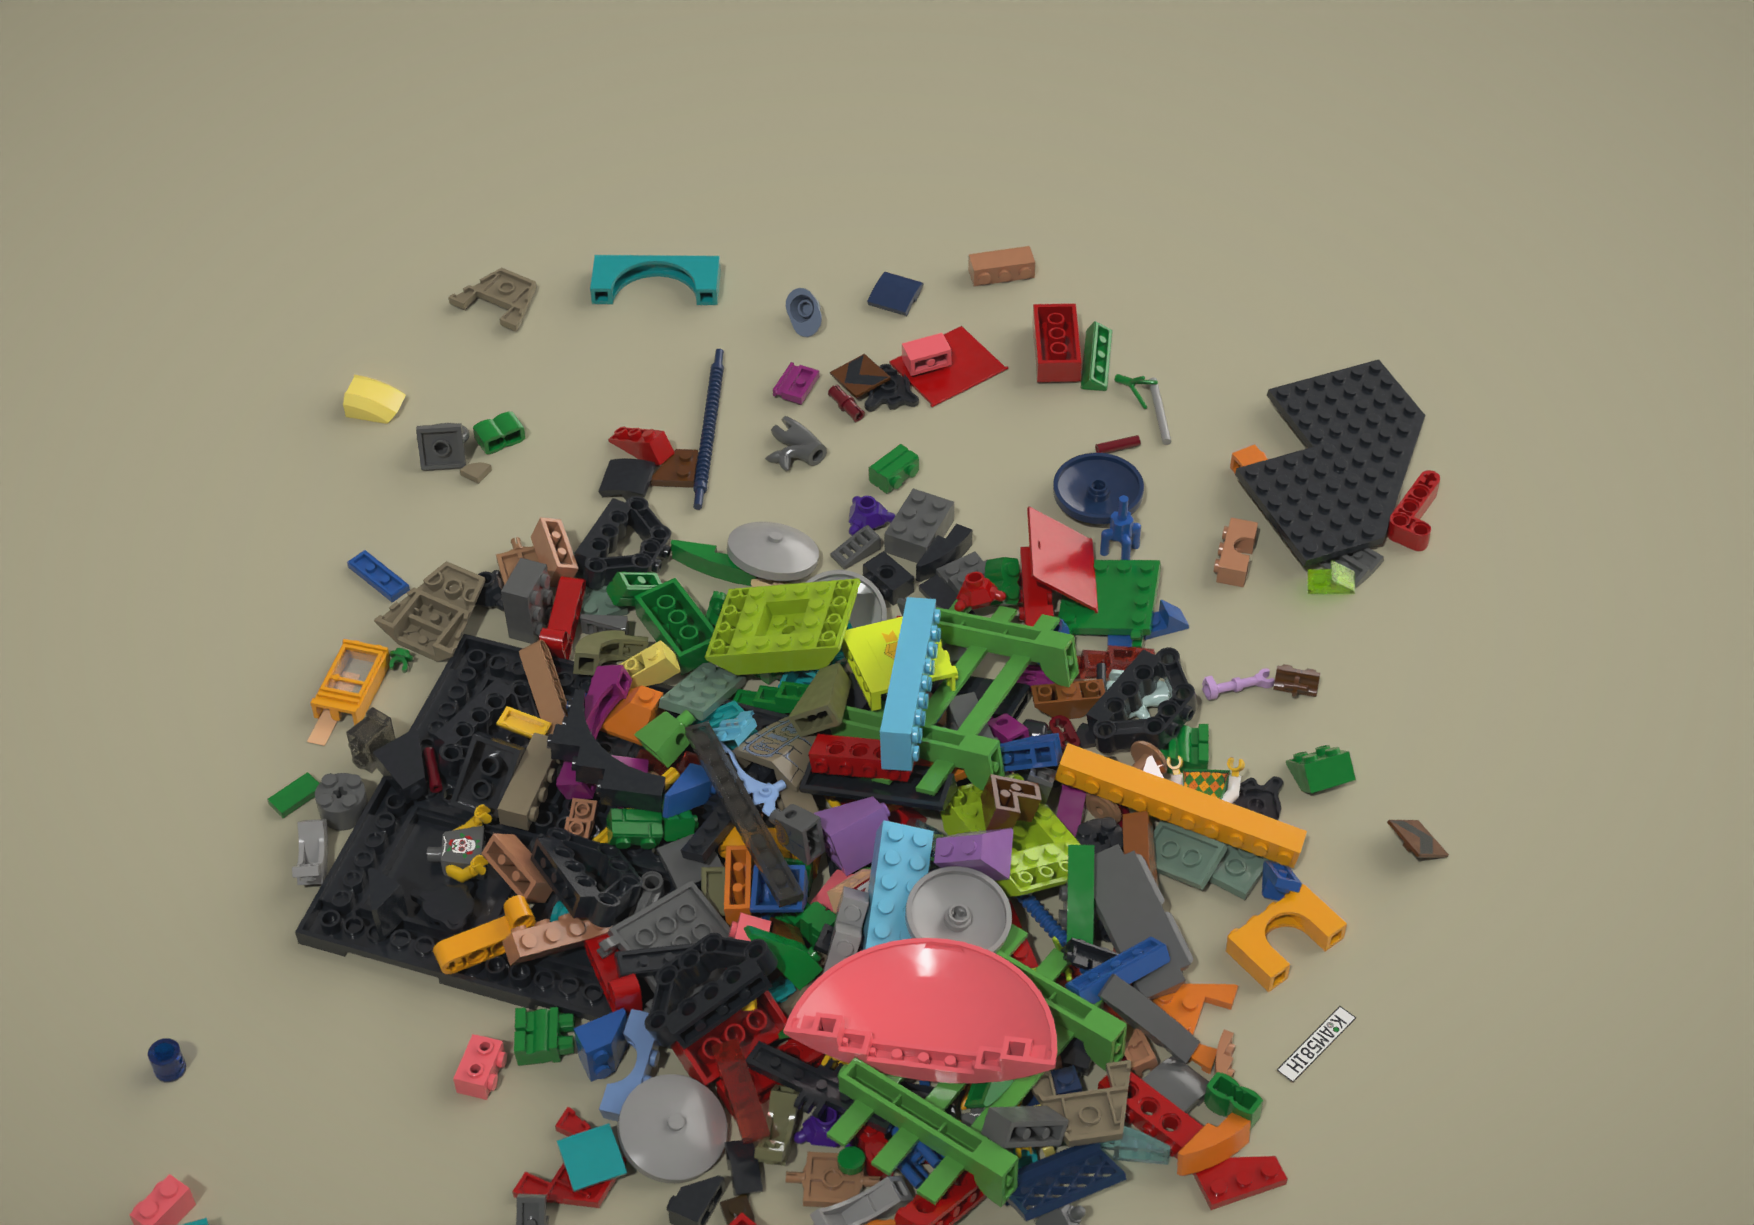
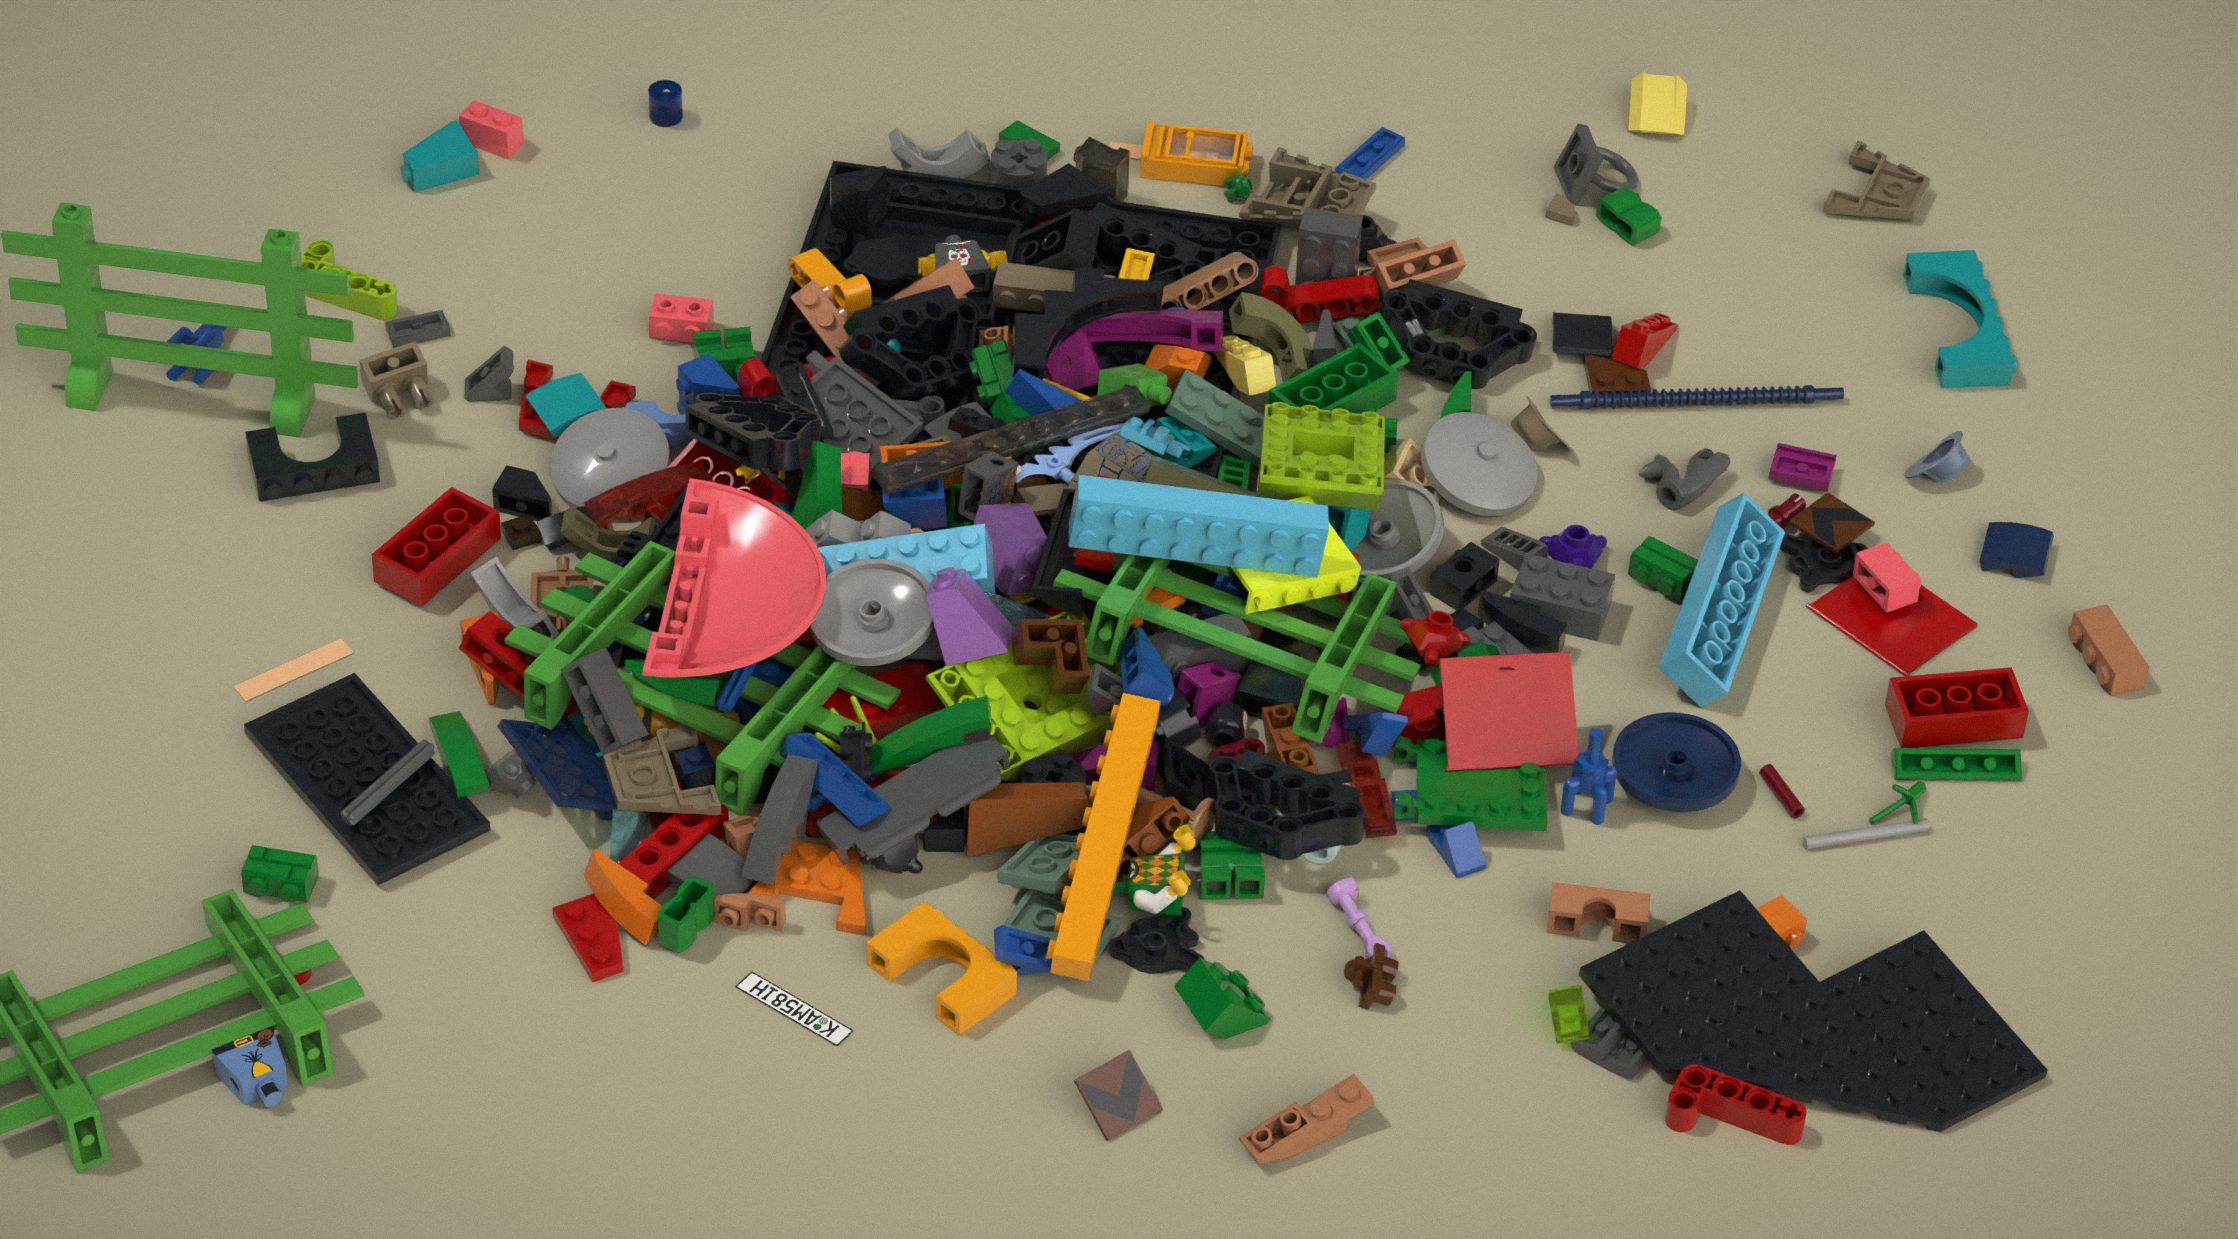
camera: 80 degrees right, 5 degrees down
(733, 514) = (1534, 429): none -> dark tan piece
(943, 437) = (1722, 600): none -> medium azure brick
(1435, 732) = (1307, 1126): none -> nougat slope

